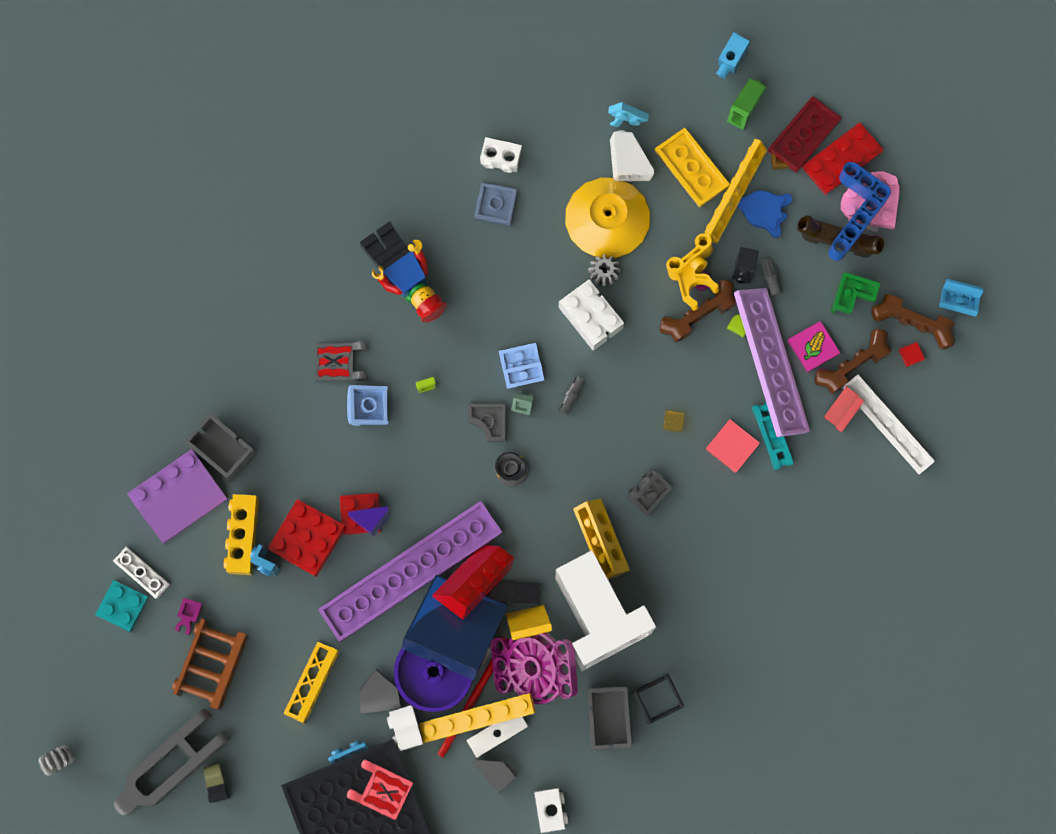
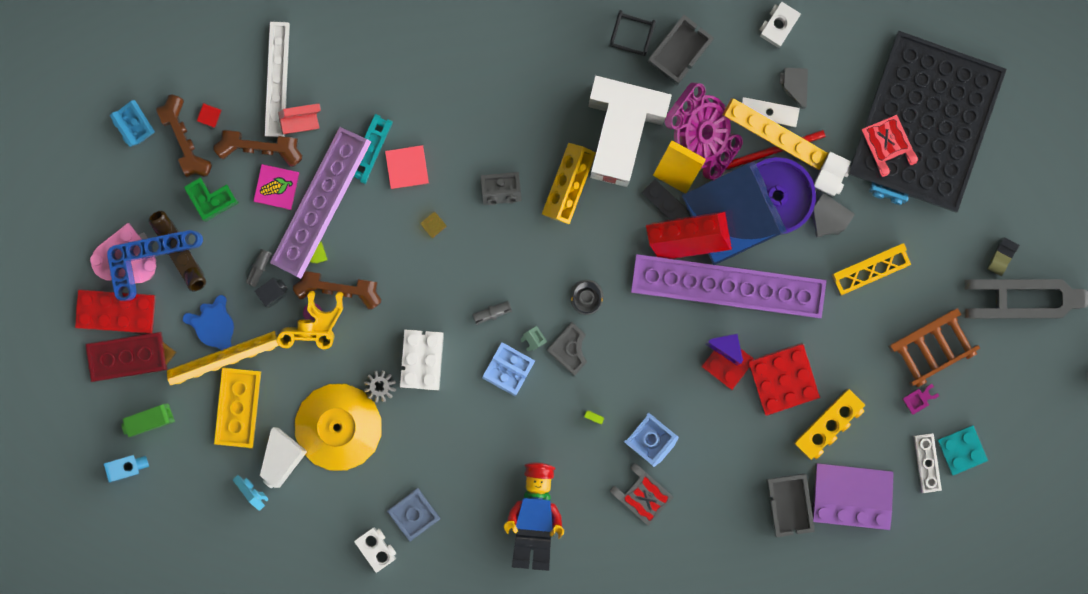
camera: 140 degrees left, 10 degrees up
(264, 566) = (833, 382): dark azure bracket -> none

